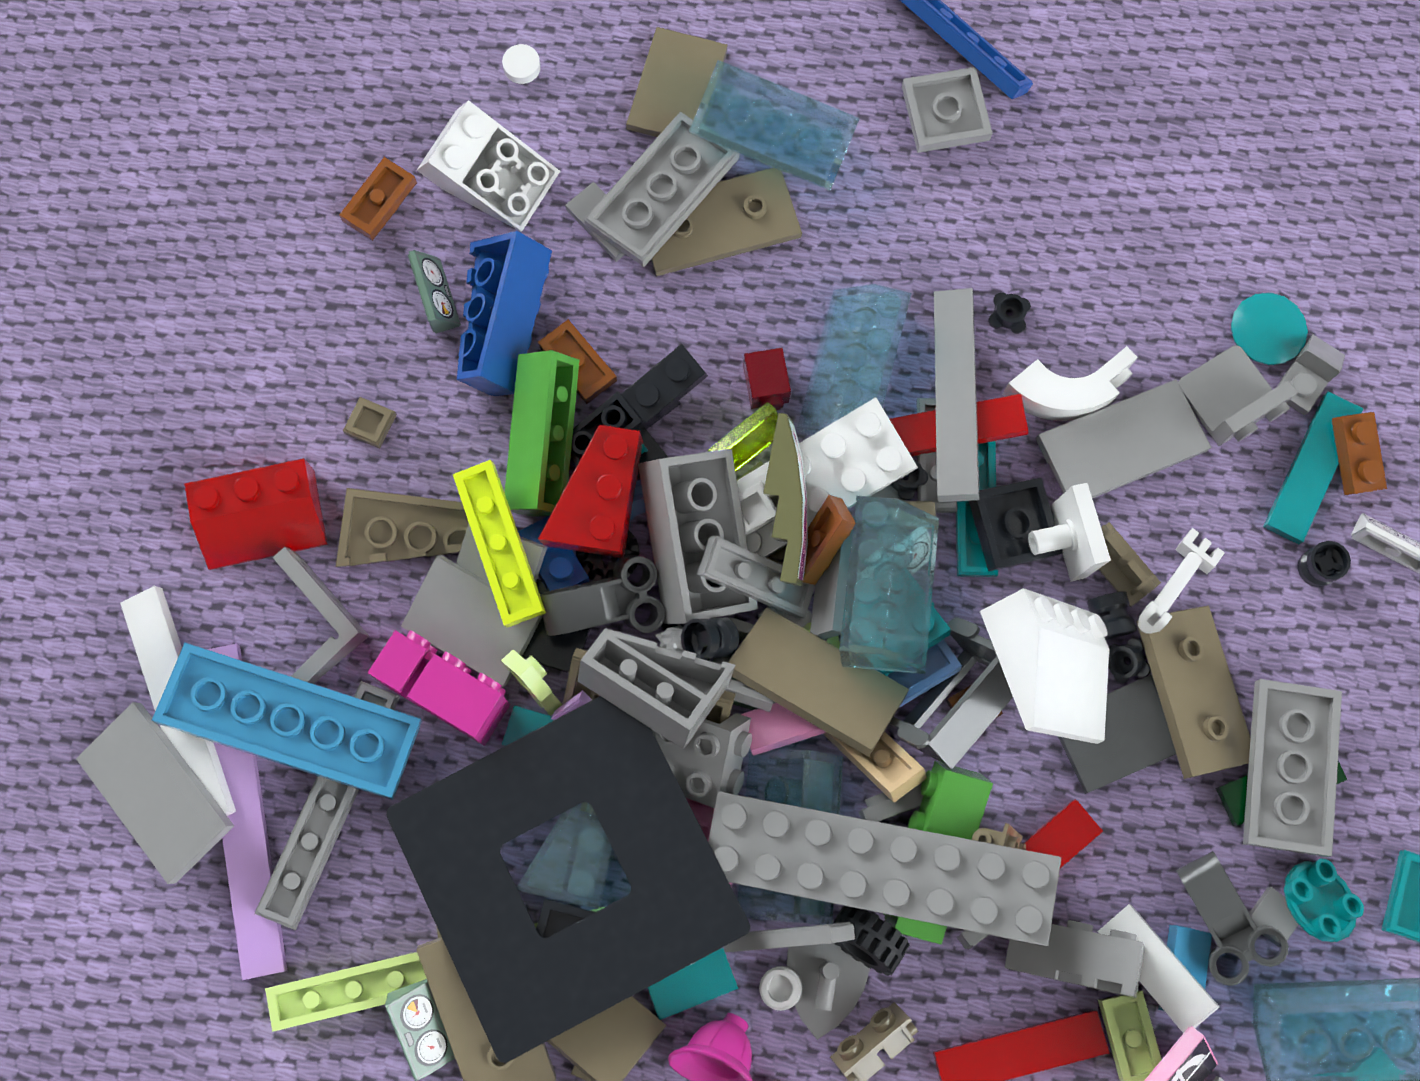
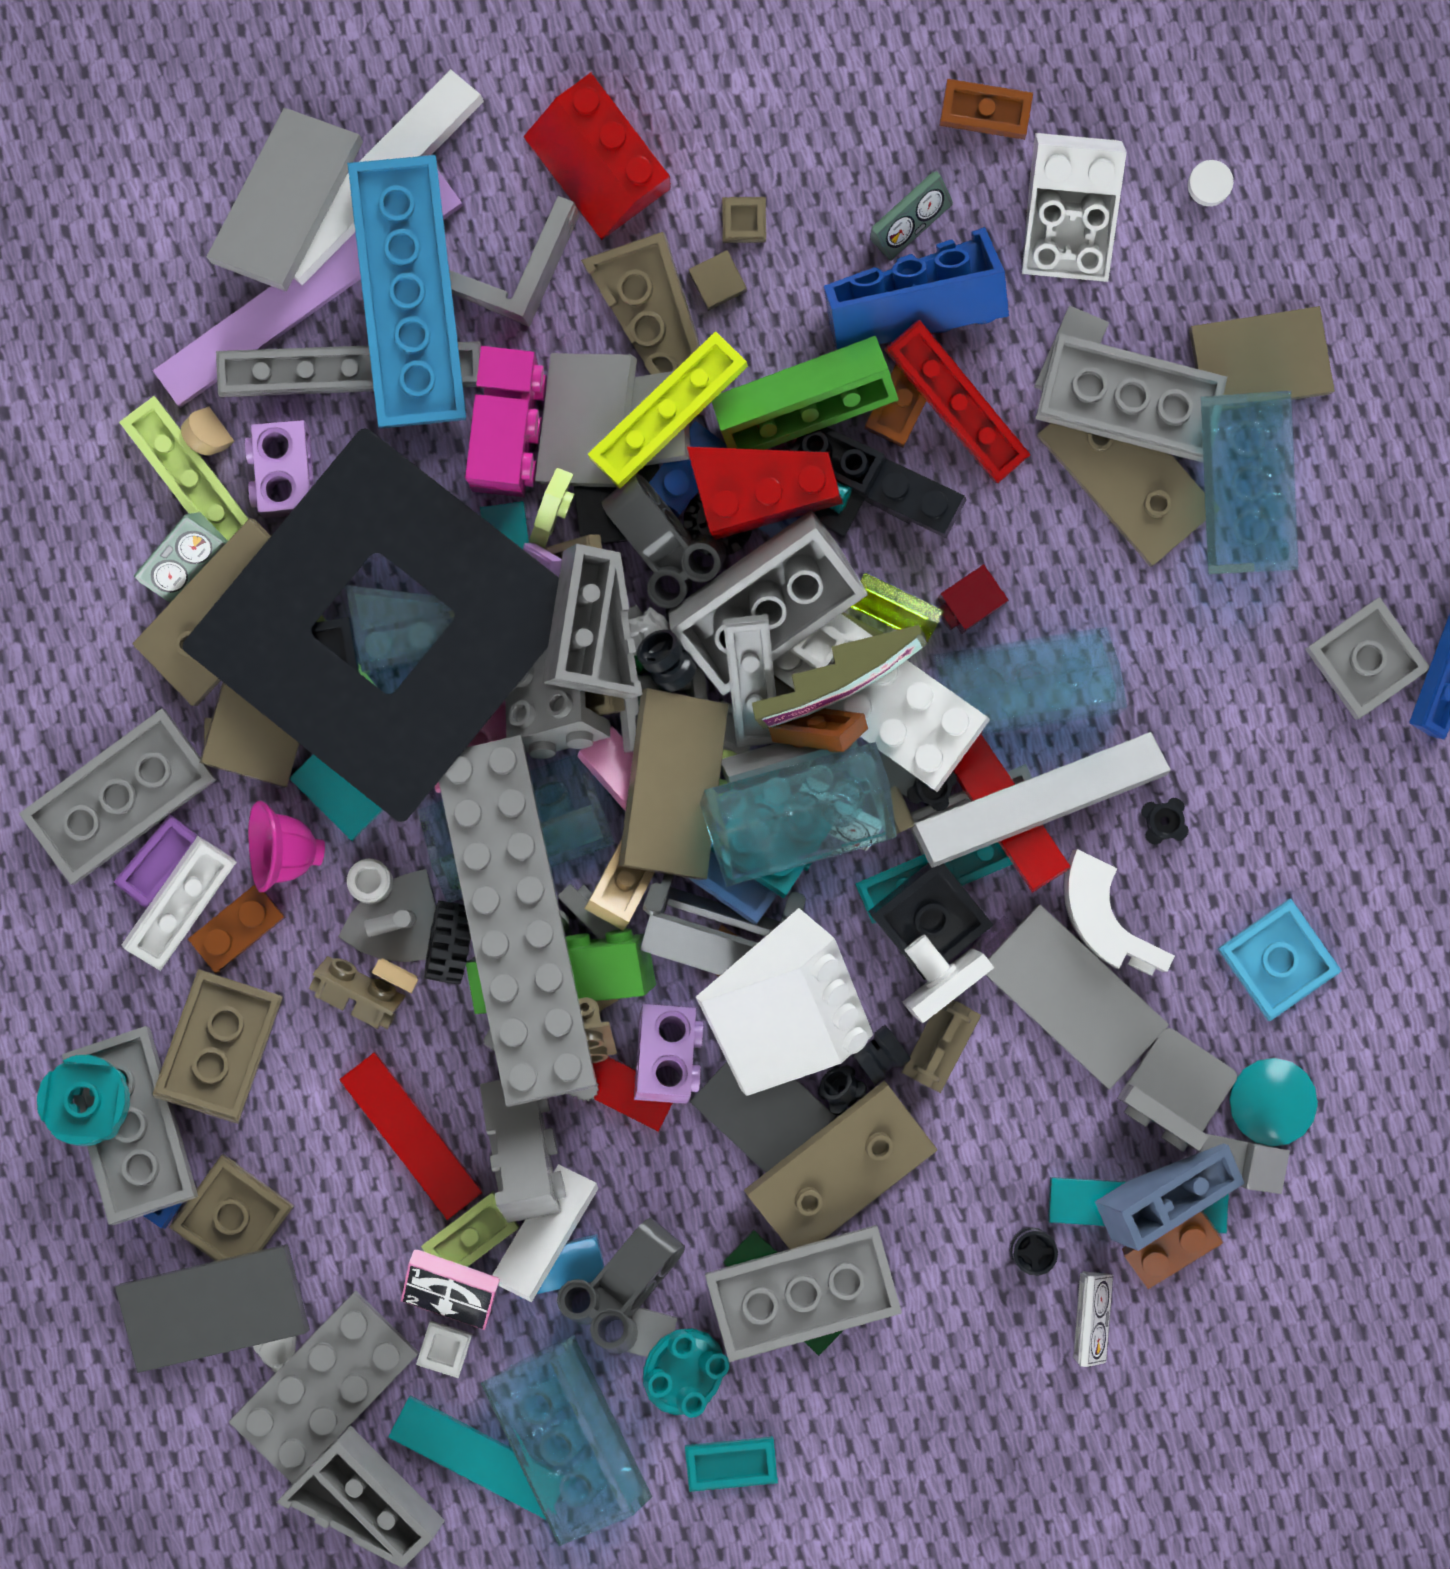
camera: 65 degrees right, 10 degrees up
(320, 956) = (205, 432): none -> tan tile
(389, 893) = (292, 467): none -> lavender brick
(408, 465) = (717, 280): none -> dark tan tile
(600, 319) = (957, 401): none -> red tile
(793, 937) = (416, 868): light grey tile -> none
(875, 1001) = (395, 975): none -> tan tile
(1036, 802) = (656, 1052): none -> lavender brick
(1155, 614) = (890, 1093): white hinge -> none
(1156, 276) = (1279, 959): none -> medium azure tile
(1323, 437) = (1168, 1196): none -> sand blue slope

